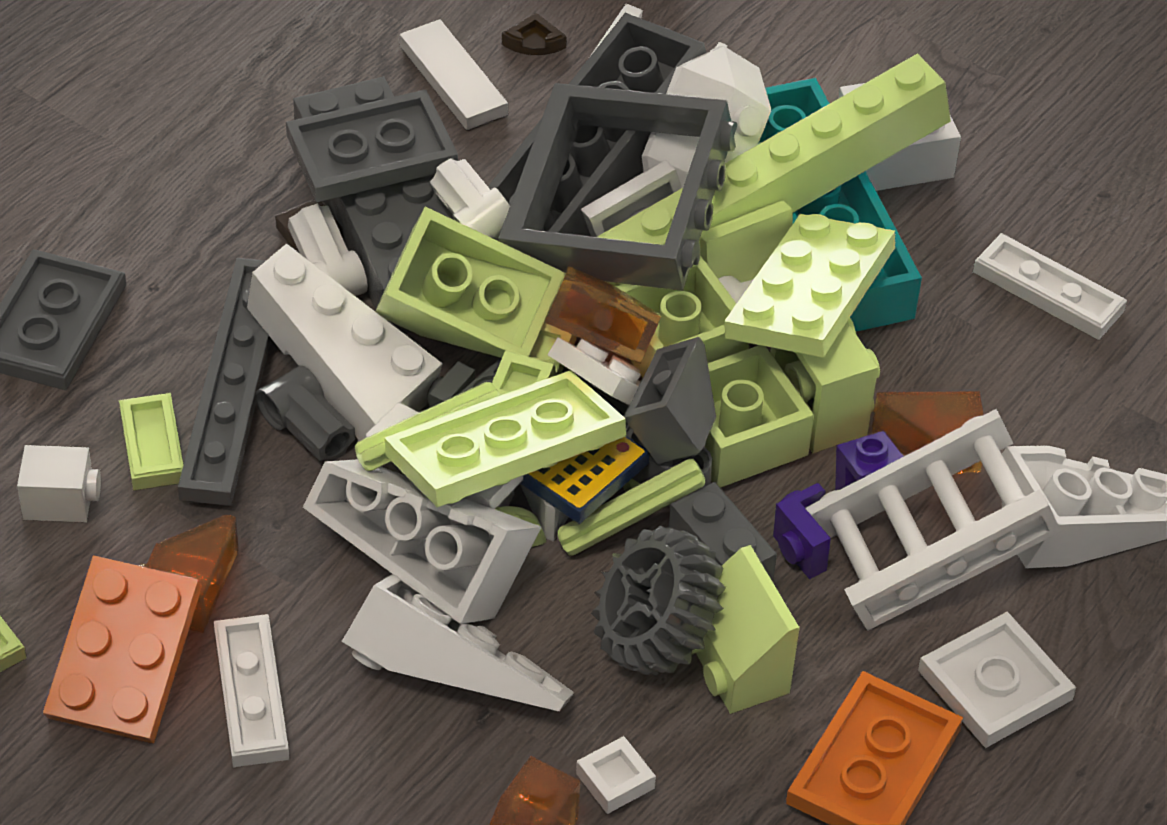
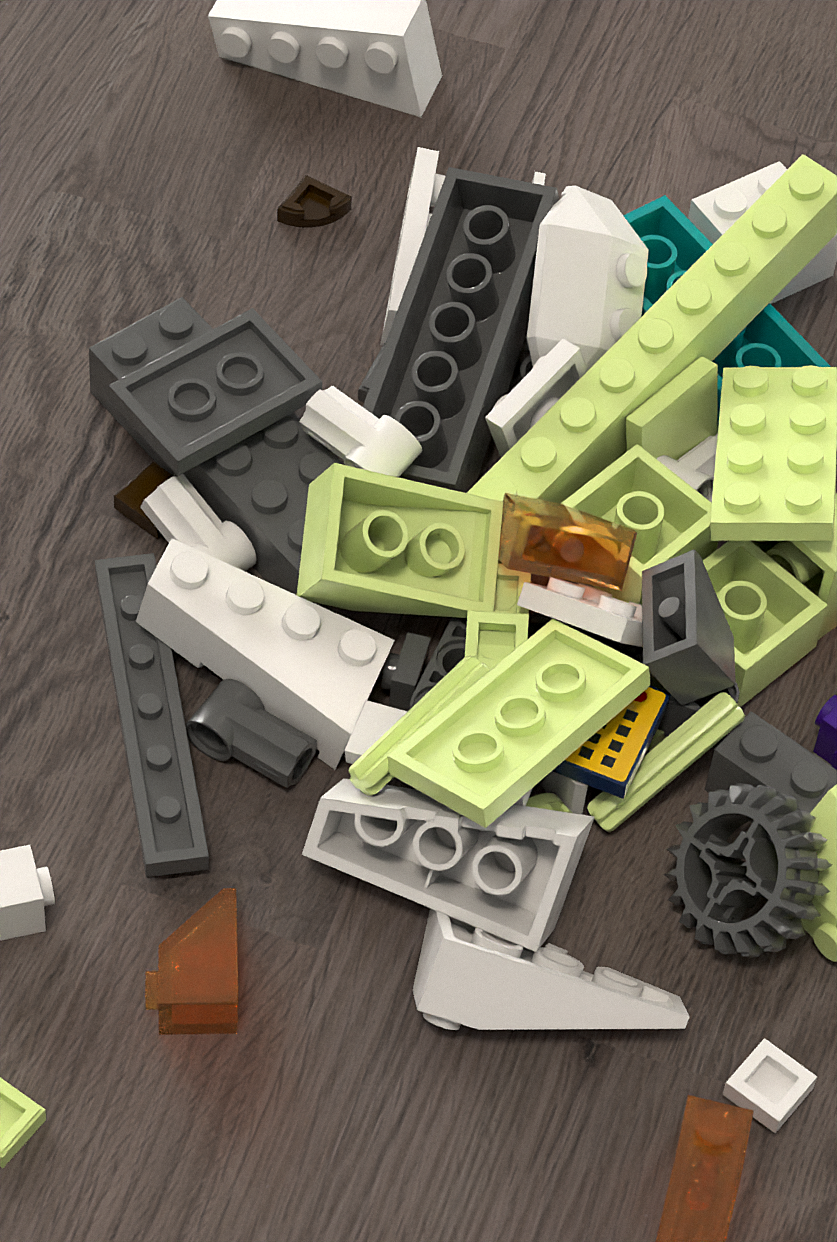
camera: 20 degrees left, 5 degrees up
(122, 649) = (169, 1084): orange plate -> none
(151, 441) = (83, 811): yellowish green tile -> none
(251, 691) = (324, 1091): white tile -> none
(453, 74) = (241, 271): white tile -> none
(614, 259) = (521, 288): dark grey window -> none

